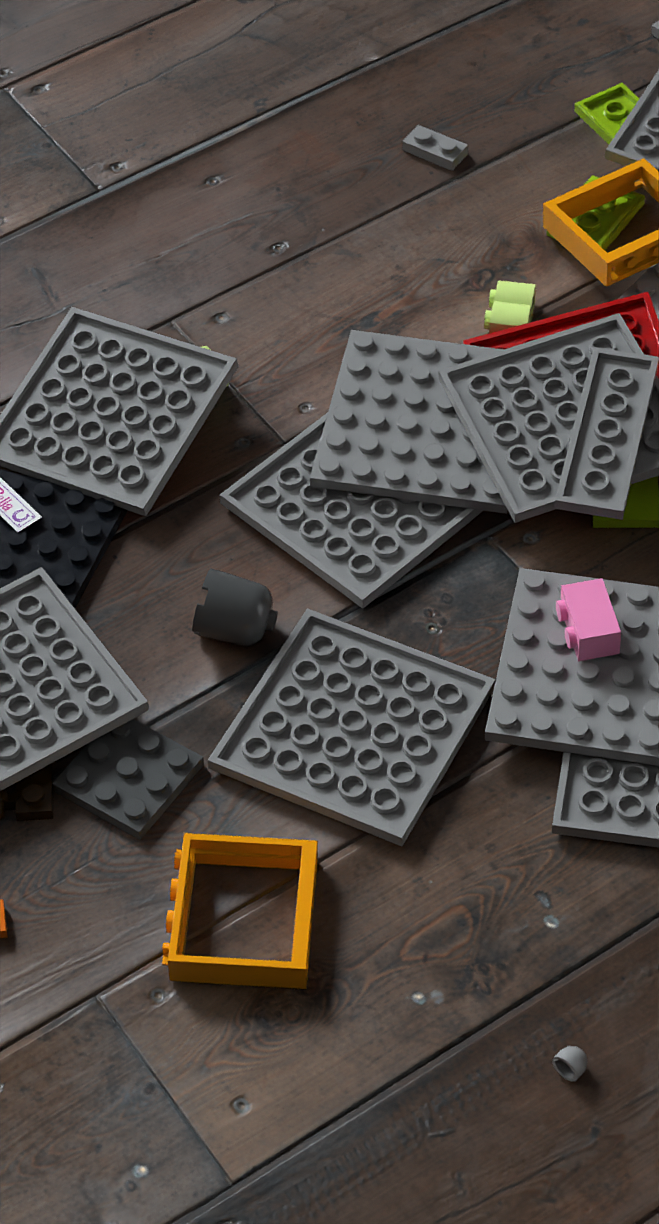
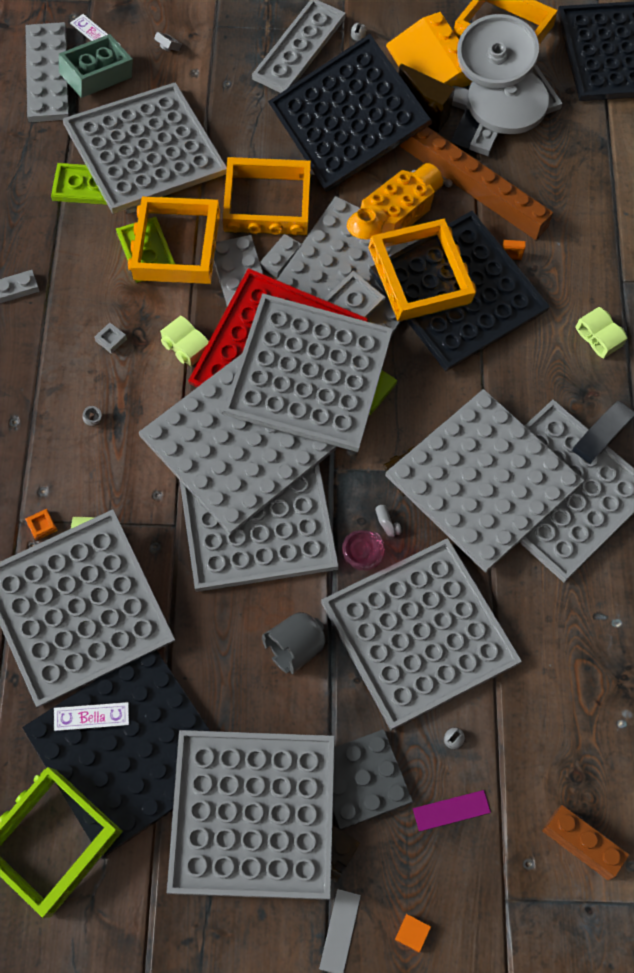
camera: 60 degrees left, 15 degrees up
(157, 878) = (451, 810): none -> magenta sticker
(184, 332) = (41, 524): none -> orange tile
(224, 1026) = (585, 843): none -> dark orange brick
(249, 853) = (539, 751): light orange window -> none
(251, 828) = (459, 740): none -> light grey hinge
(339, 292) = (86, 414): none -> light grey hinge
(403, 609) = (363, 549): none -> clear pink hair
(451, 252) = (110, 338): none -> light grey plate
(462, 612) = (385, 521): none -> light grey arm
(589, 620) = (461, 465): bright pink brick -> none
(607, 433) = (347, 362): light grey plate -> none

